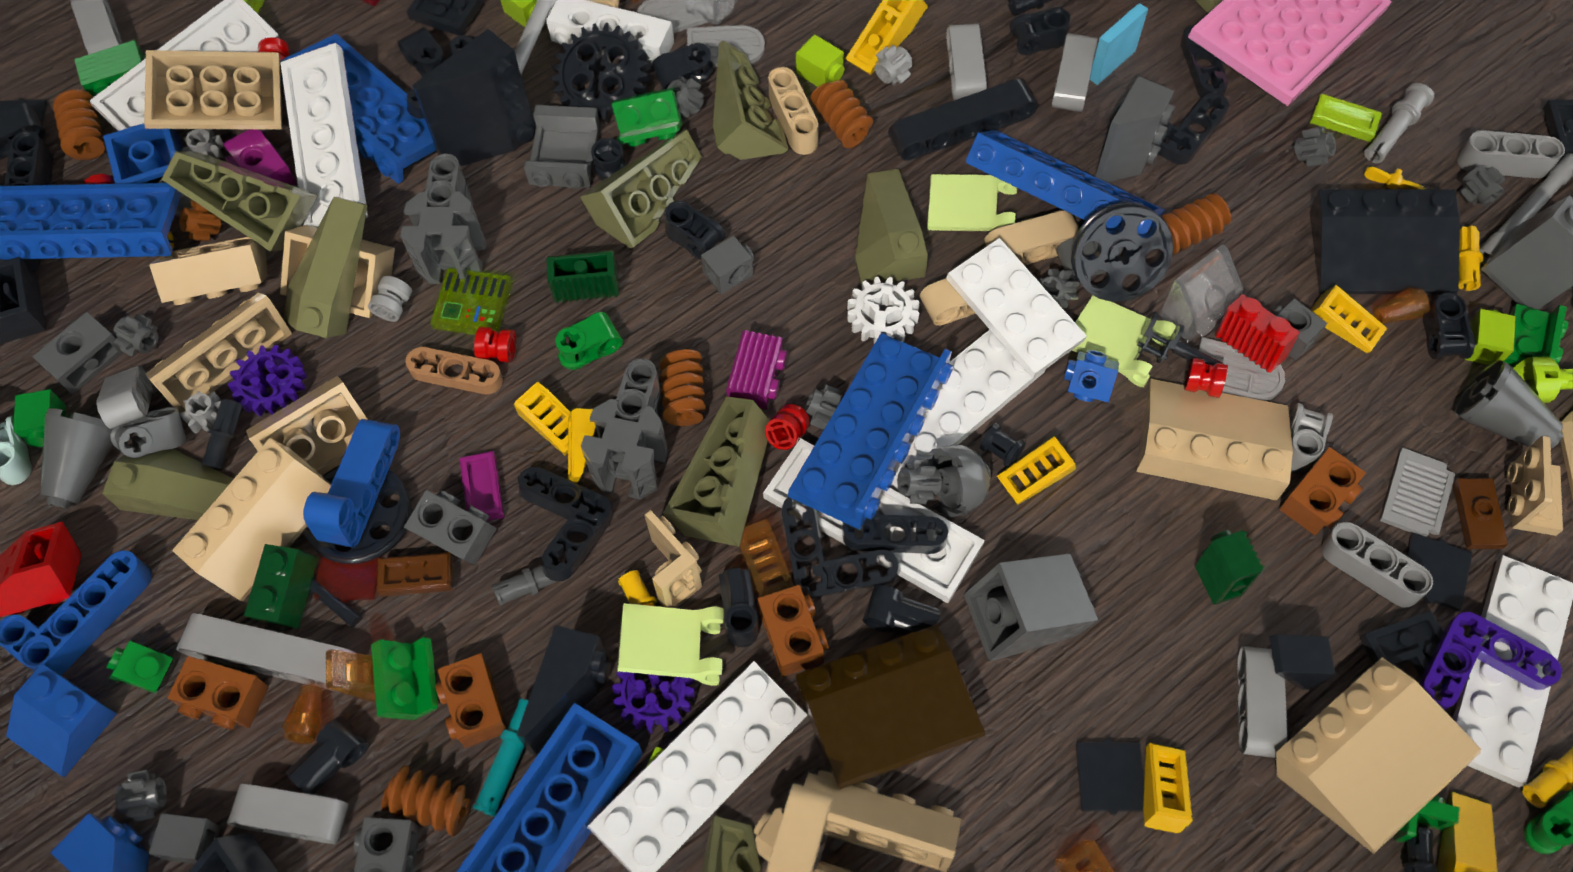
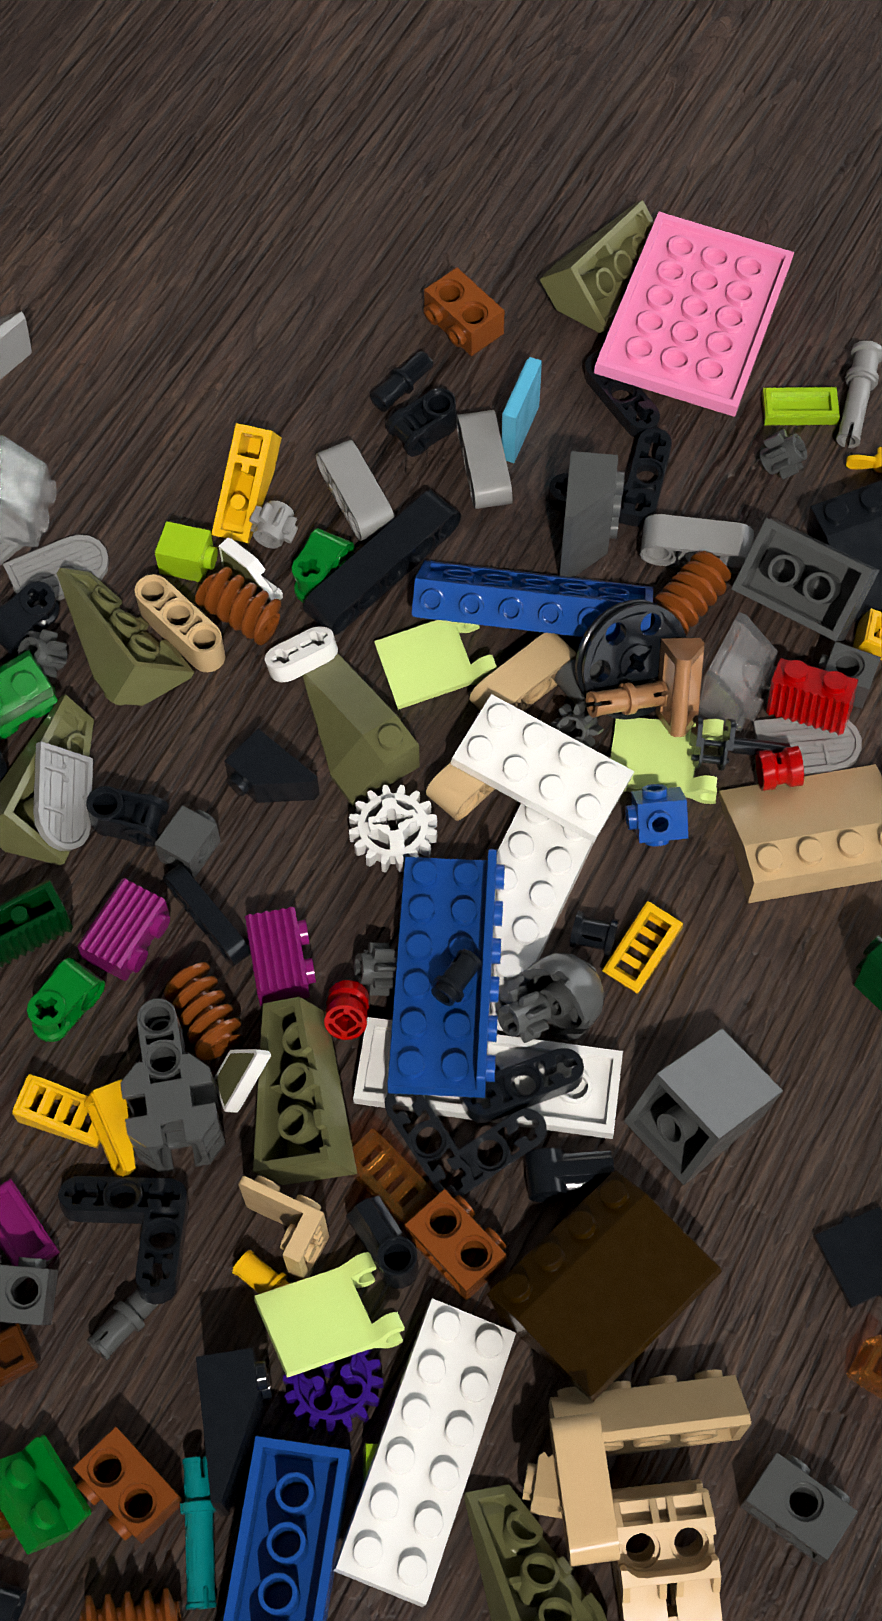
camera: 25 degrees left, 0 degrees up
(649, 196) = (60, 796): none -> light grey window
(653, 309) = (125, 930): none -> magenta brick
(685, 443) = (238, 1076): none -> tile
(717, 321) = (206, 915): none -> black beam
(809, 237) = (269, 772): none -> black slope
(860, 86) = (247, 565): none -> white tile
(872, 163) = (301, 654): none -> white beam
(872, 432) = (456, 977): none -> black pin
(915, 99) = (318, 560): none -> green piece
(1105, 280) = (627, 698): none -> medium nougat pin
(1153, 283) = (682, 672): none -> medium nougat tile
(1196, 178) = (675, 539): none -> light grey beam
(1290, 243) = (805, 579): none -> dark grey brick

